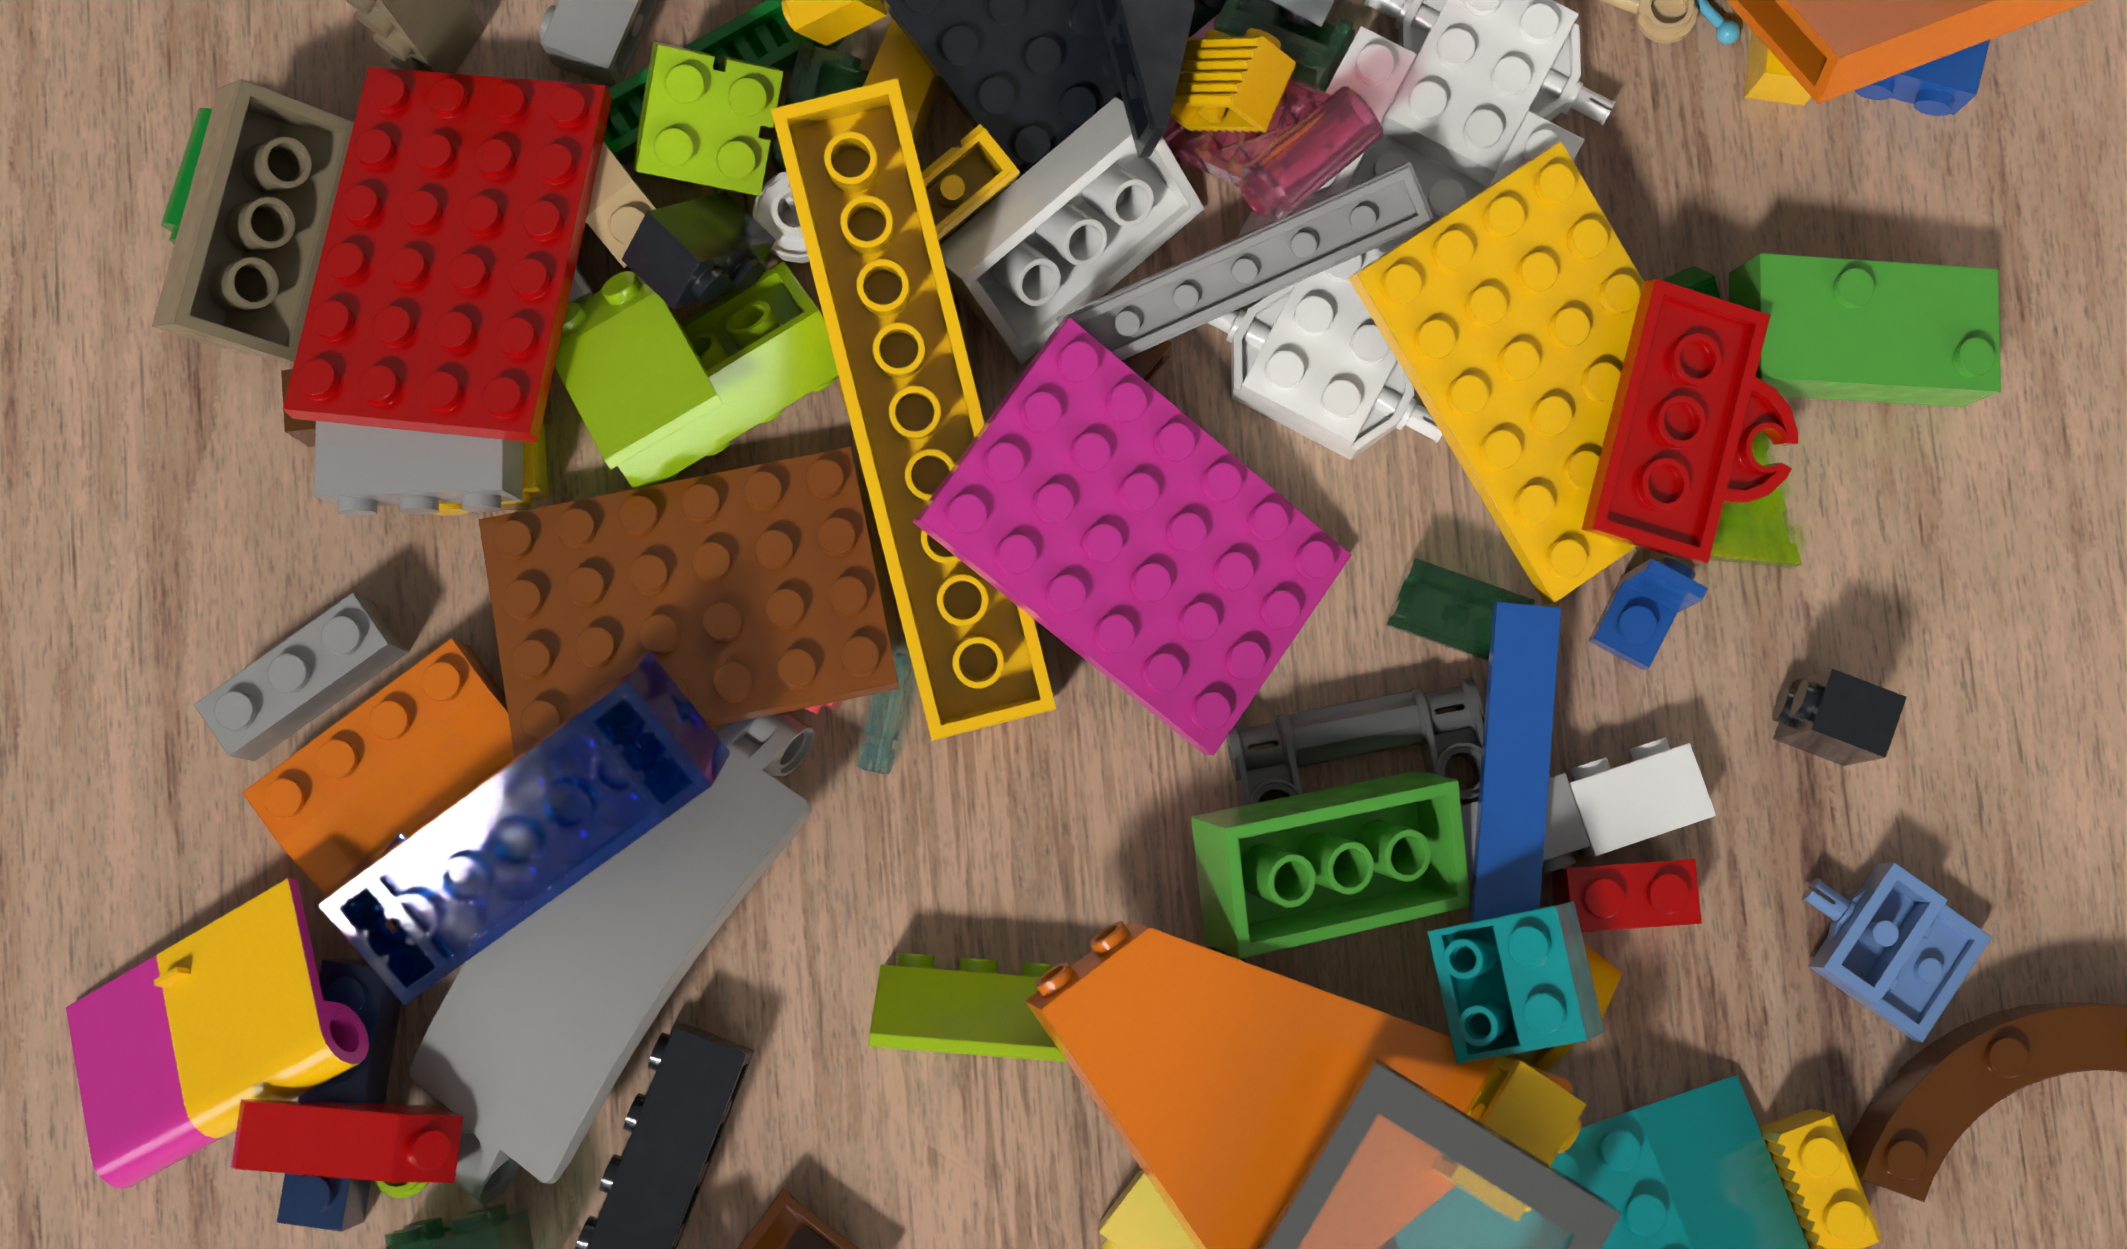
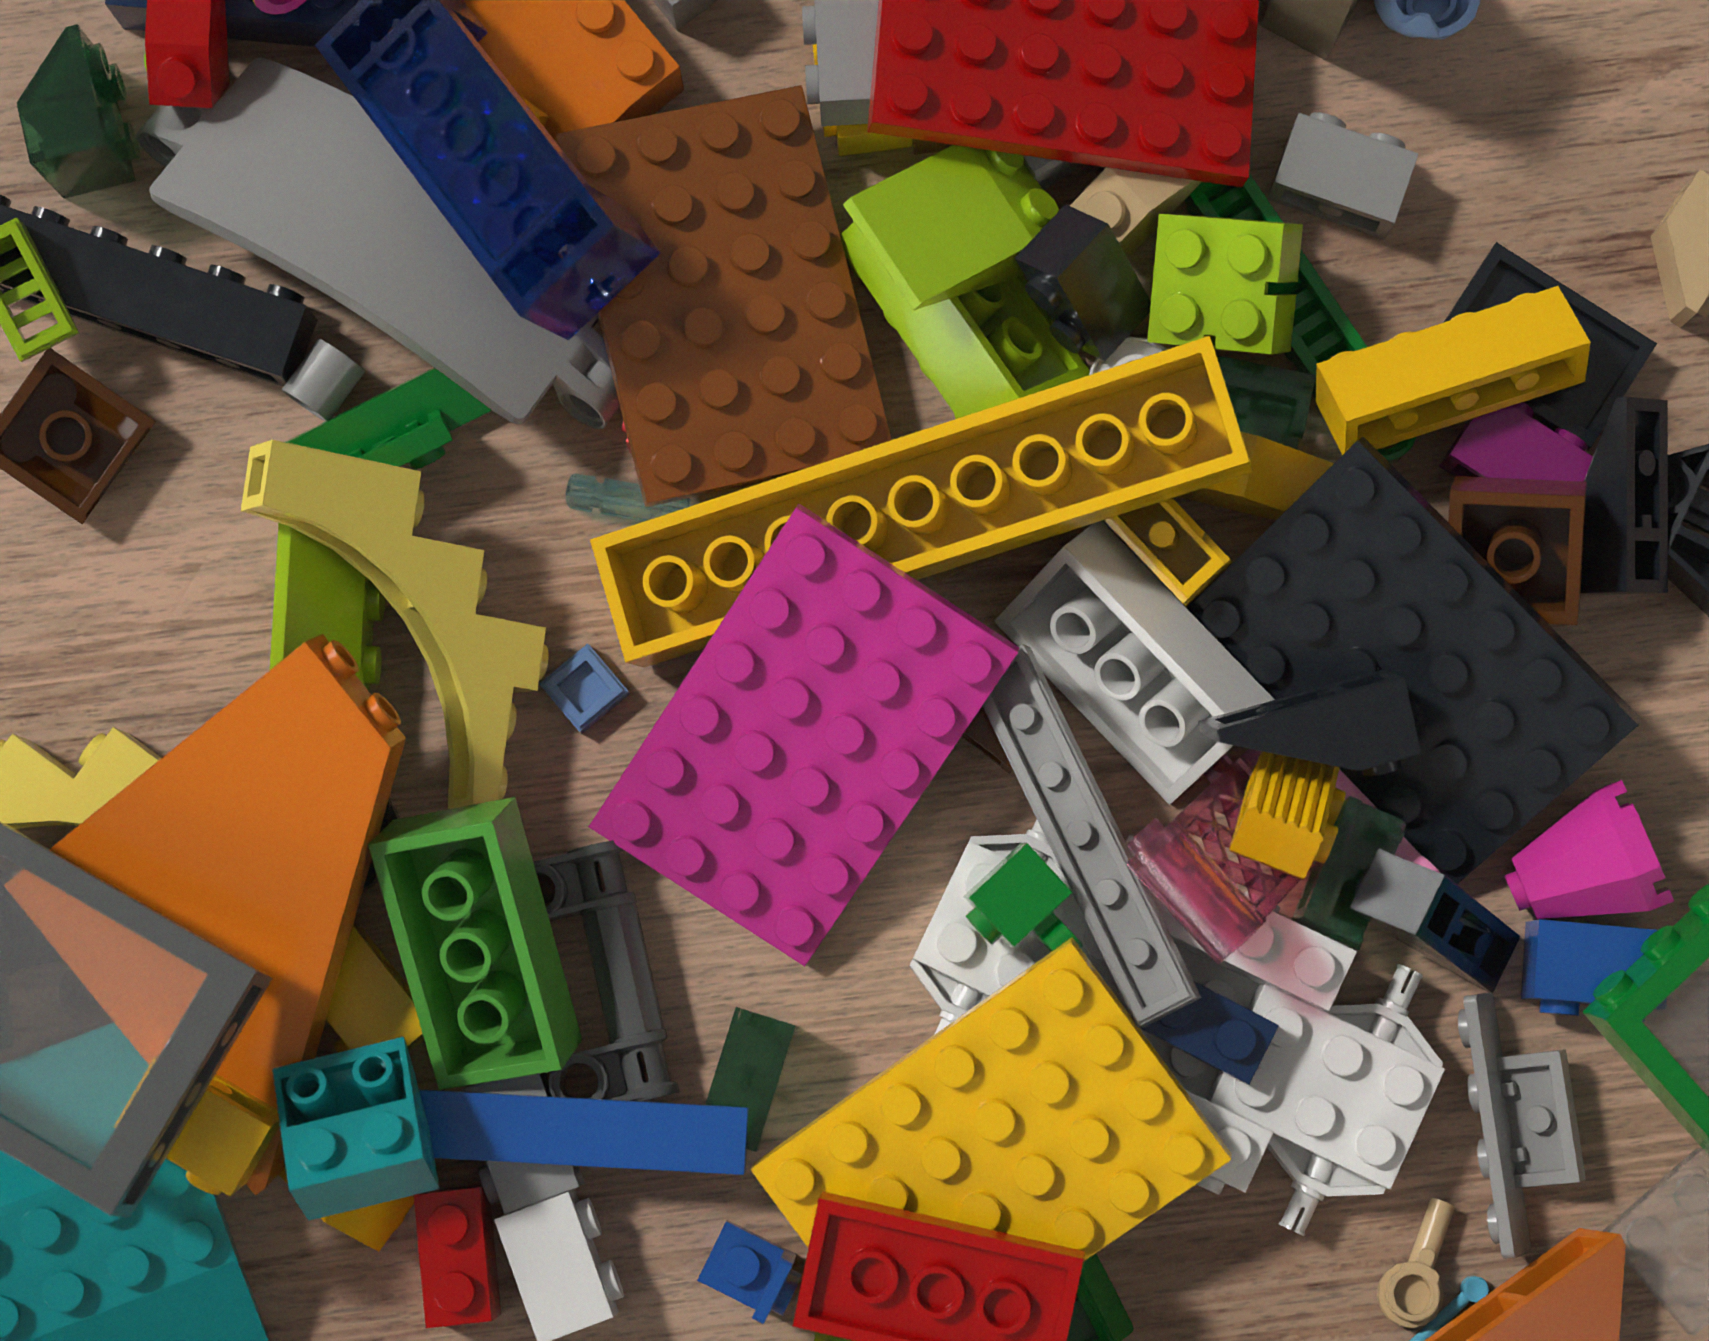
camera: 90 degrees right, 0 degrees up
(749, 1014) = (323, 380): none -> light grey beam
(816, 967) = (399, 424): none -> green bracket
(907, 955) = (369, 519): none -> light yellow arch
(1071, 761) = (584, 688): none -> medium blue tile
(1308, 329) = (1019, 900): none -> green brick
(1386, 972) = (371, 999): none -> yellow brick
(1439, 151) = (1218, 1034): none -> dark blue plate

